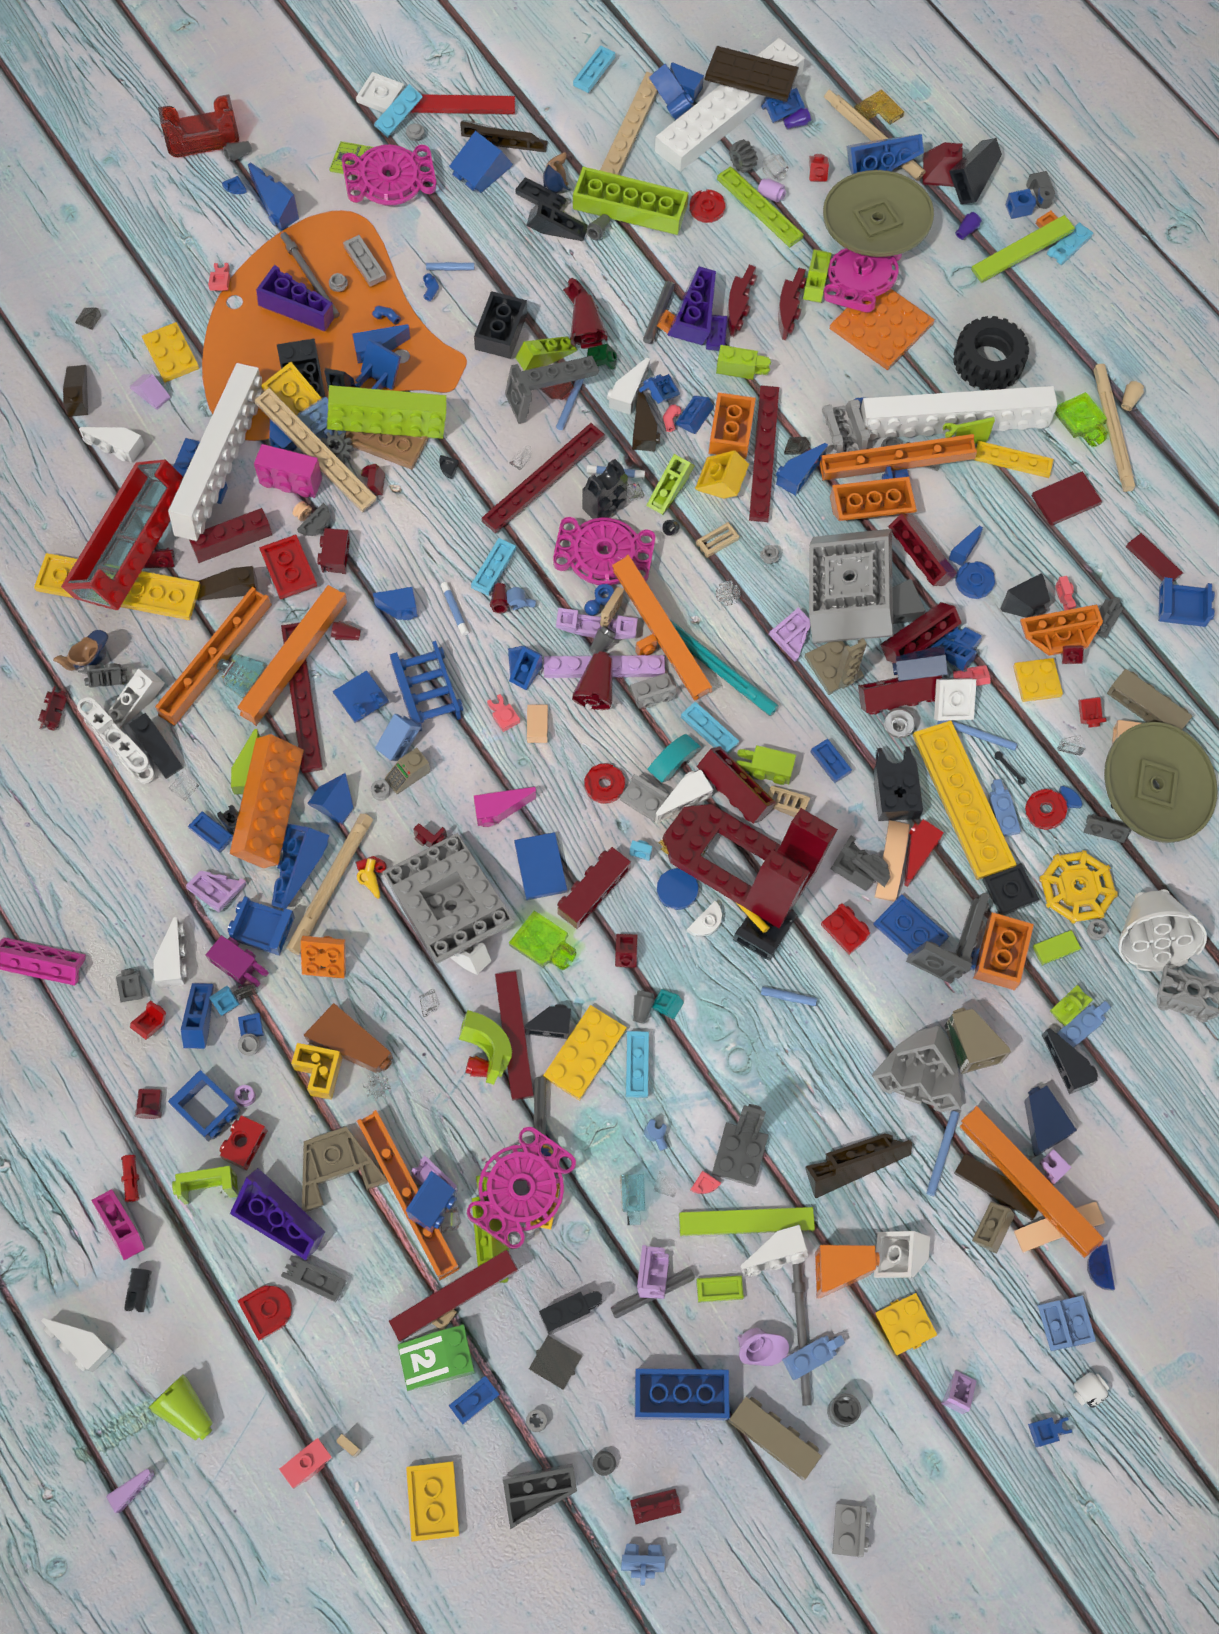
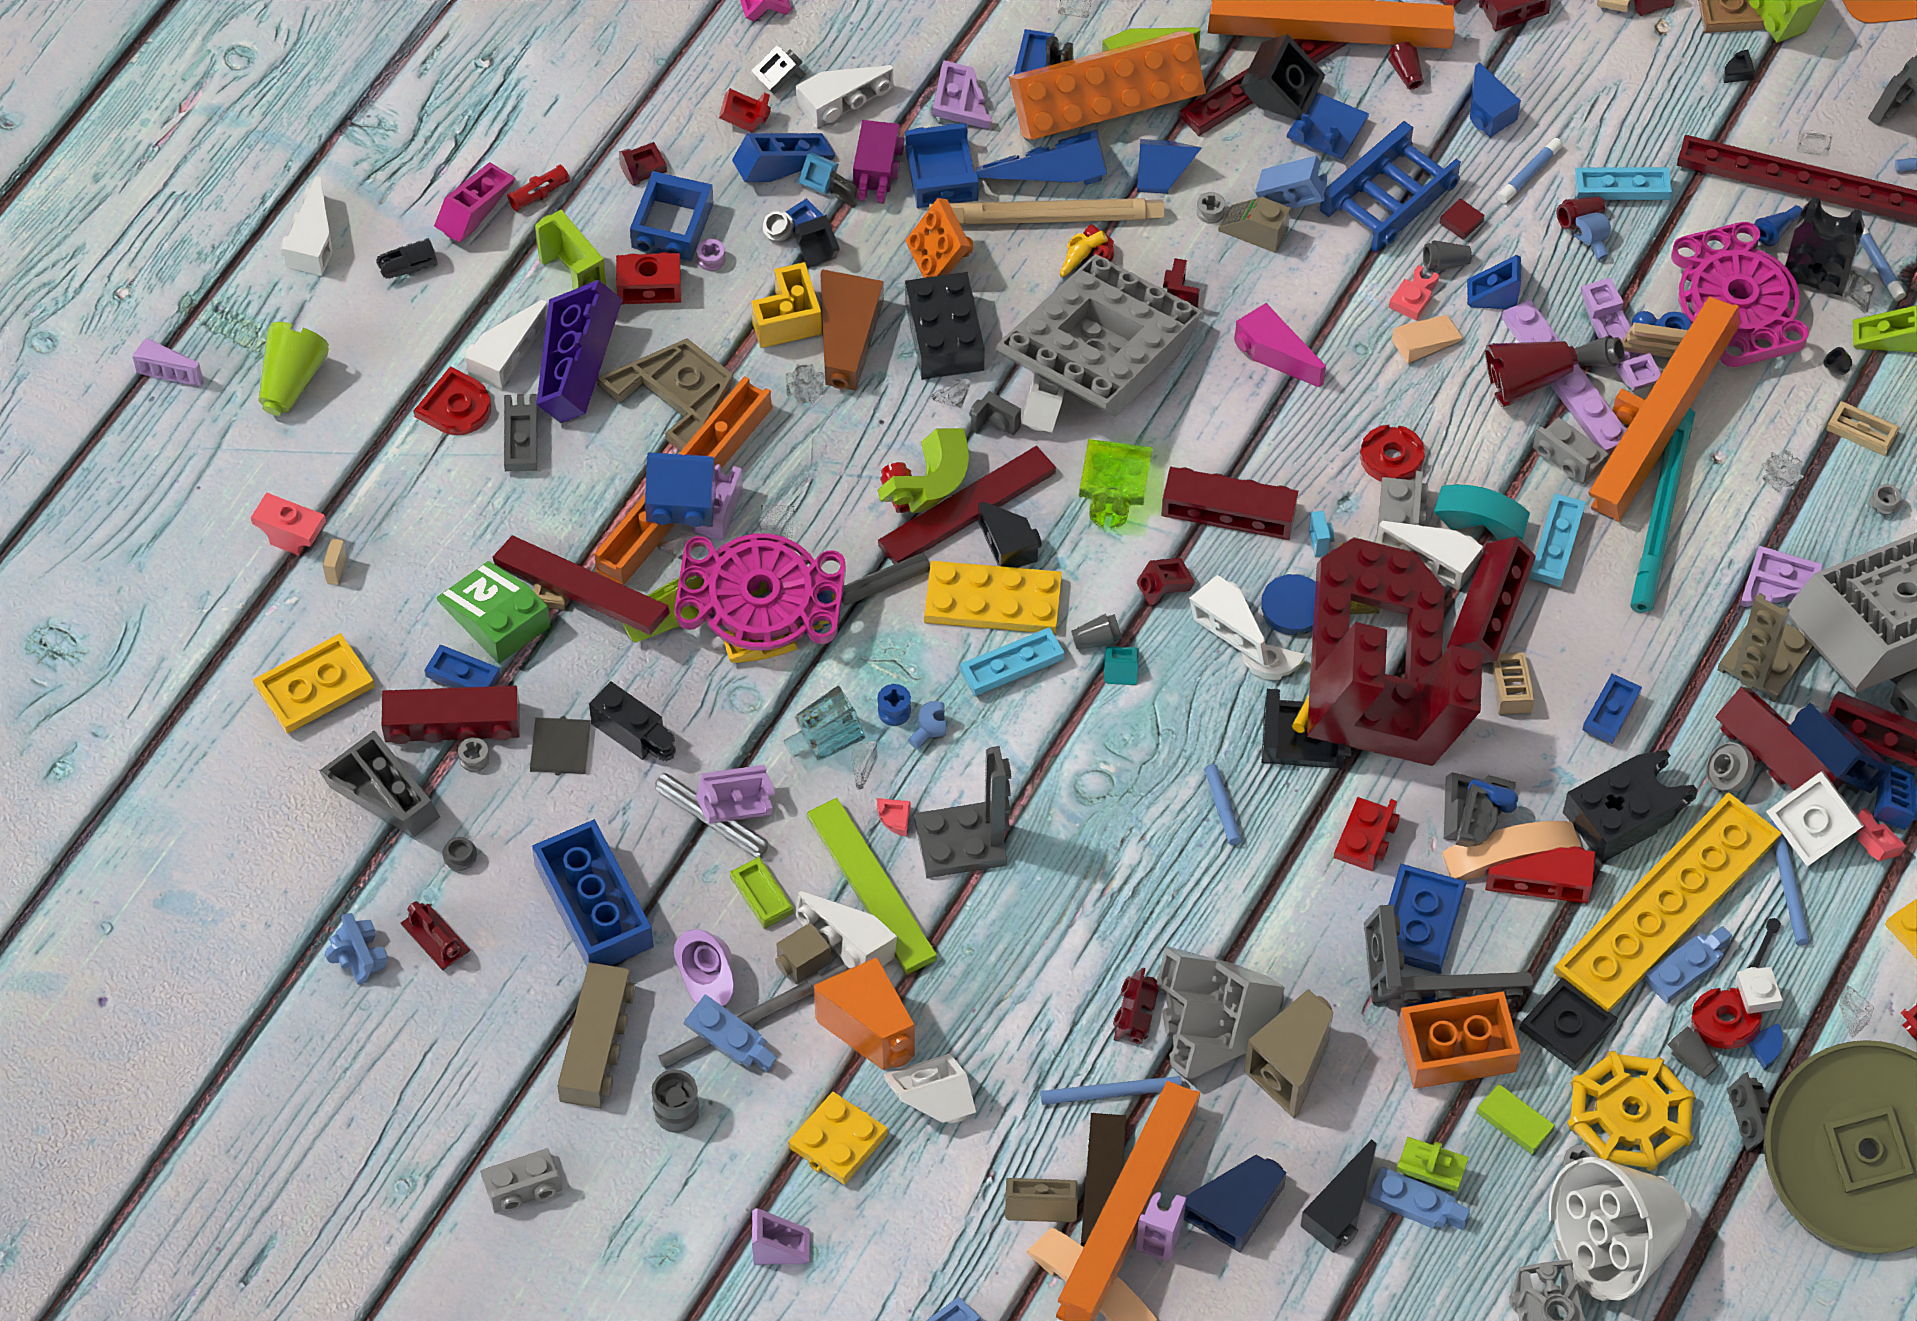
camera: 65 degrees right, 10 degrees down
(244, 1261) = (505, 346): none -> white slope
(276, 1027) = (816, 241): none -> black panel
(319, 703) = (1282, 78): none -> black slope
(381, 983) = (944, 325): none -> black brick
(461, 983) = (997, 411): none -> dark grey bracket
(463, 1151) = (777, 520): none -> clear slope
(467, 661) = (1462, 219): none -> dark red tile
(488, 685) = (1445, 255): none -> dark grey cone
(502, 1422) = (450, 714): none -> dark red brick
(540, 866) = (1222, 431): blue tile -> none
(566, 508) = (1775, 225): none -> blue cone
(630, 1151) = (894, 713): none -> blue wheel
(670, 928) = (1225, 612): none -> white slope
(768, 764) = (1552, 633): lime hinge -> none
(777, 1285) = (803, 953): none -> dark tan brick
(855, 1162) = (1030, 982): dark brown wedge -> none
(863, 847) = (1501, 796): none -> blue arm
(904, 1119) = (1129, 1019): none -> dark red hinge
(1041, 784) = (1758, 989): none -> white bracket
(1058, 836) = (1693, 1052): none -> dark grey cone

